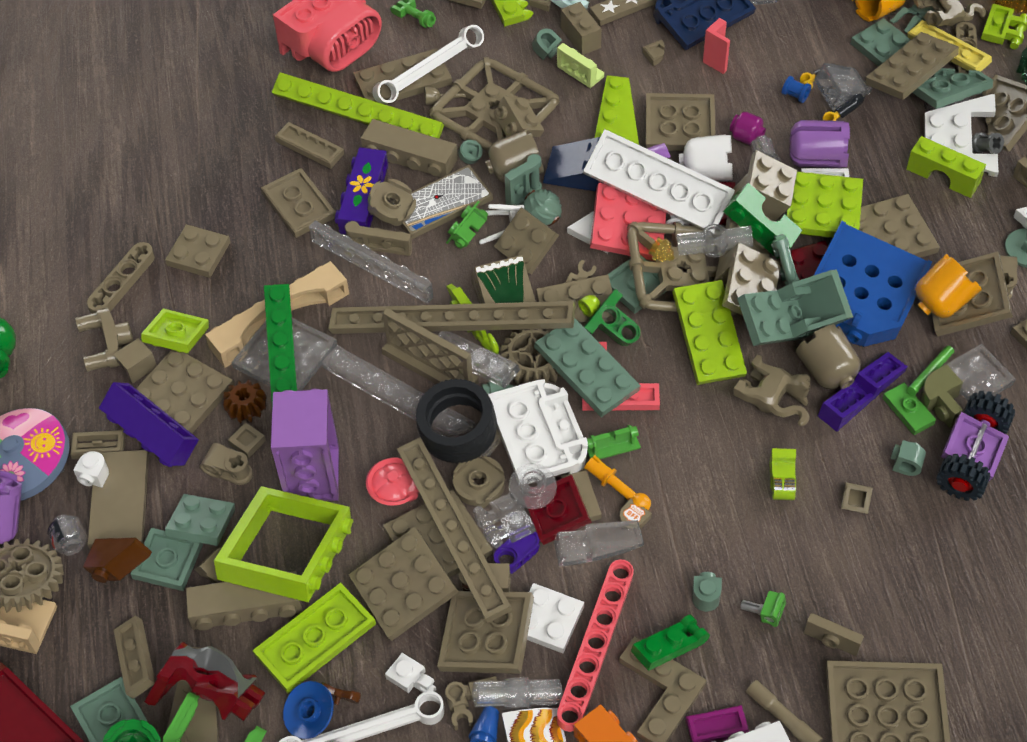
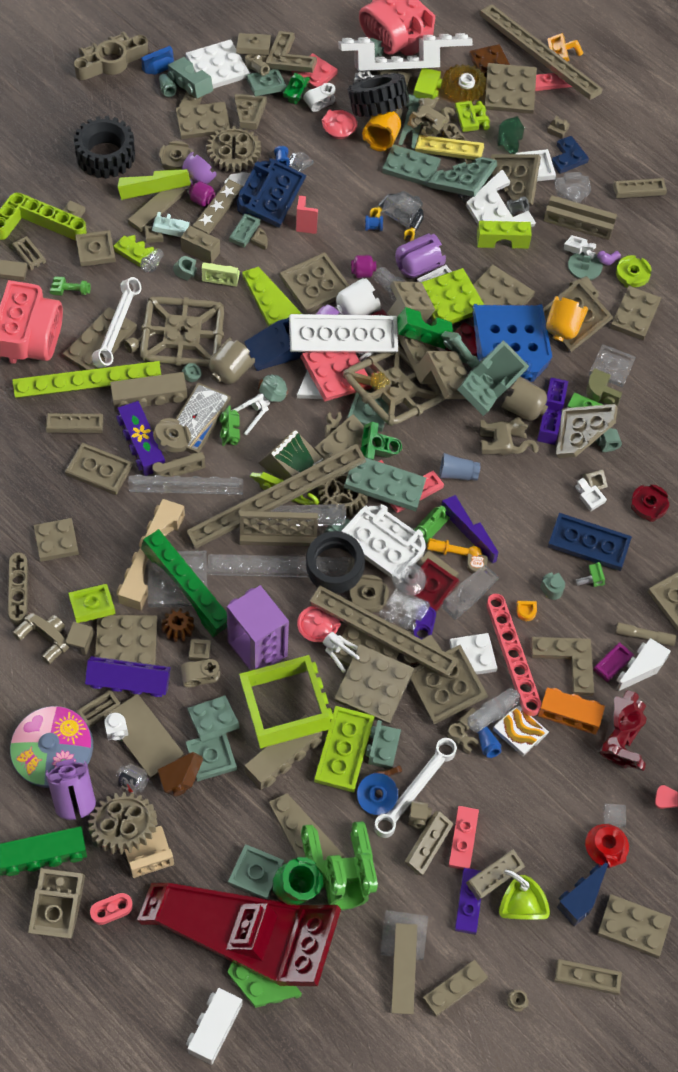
camera: 40 degrees left, 5 degrees up
(134, 657) = (244, 827): dark tan plate -> none
(207, 567) = (242, 741): dark tan tile -> none
(211, 677) = (308, 807): dark red hips -> none
(361, 659) = (384, 745): none -> sand green bracket
(391, 514) = (336, 643): none -> white plant
(408, 674) = (416, 737): white plate -> none
(516, 115) = (210, 333): dark tan bracket -> none
(517, 23) = (151, 261): none -> clear cone
(519, 183) = (249, 377): sand green plate -> none
(528, 238) = (279, 416): dark tan plate -> none
(589, 305) = (357, 439): lime hinge -> none
(642, 35) = (244, 230): none -> sand green plate
(654, 602) = (526, 610): none -> light orange tile
(656, 476) = (475, 533): none -> dark purple slope
(670, 643) = (556, 629): green plate -> none
(690, 396) = (458, 468): none -> sand blue plant
(709, 332) = (441, 420): lime plate -> none
(713, 240) = (407, 357): clear piece -> none
(783, 474) = (545, 489): lime leg -> none
(793, 564) = (589, 541): none -> dark blue plate
(833, 634) = (641, 571): dark tan plate -> none
(835, 513) = (590, 495): none -> white plate
(881, 425) = (582, 427): none -> dark tan plate
(908, 573) = (648, 493): none -> dark red plate
(912, 65) = (438, 172): dark tan plate -> none
(941, 358) = (584, 377): bright green bar -> none
(975, 445) = (643, 411): plate -> none

